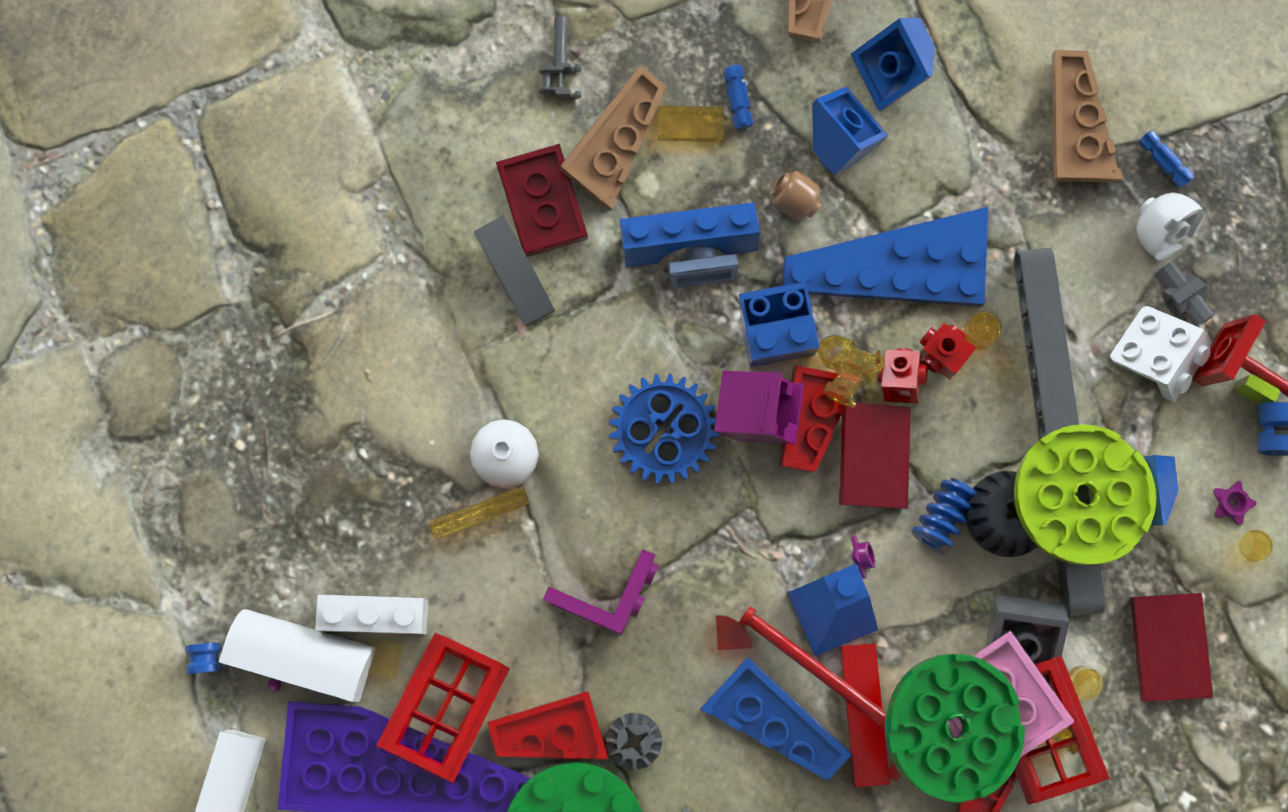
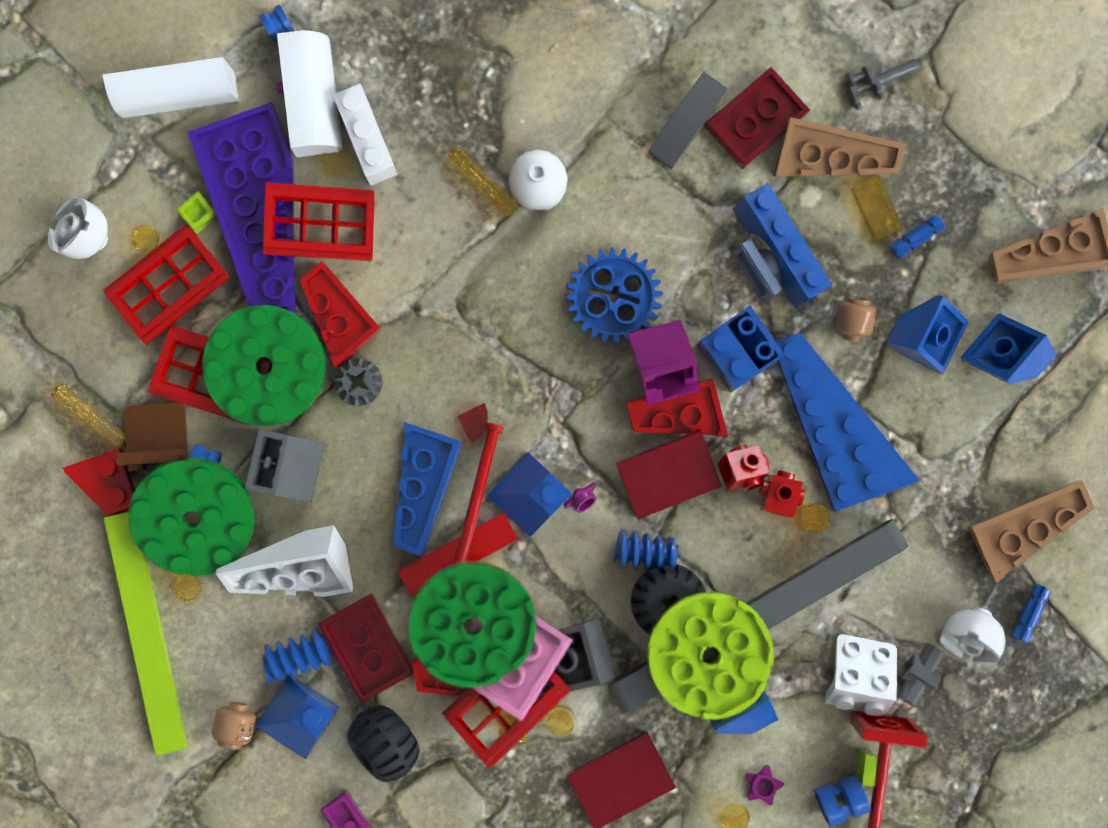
camera: 70 degrees right, 5 degrees up
(628, 606) = (458, 327): magenta bracket -> none
(850, 368) = (732, 423): clear yellow piece -> none

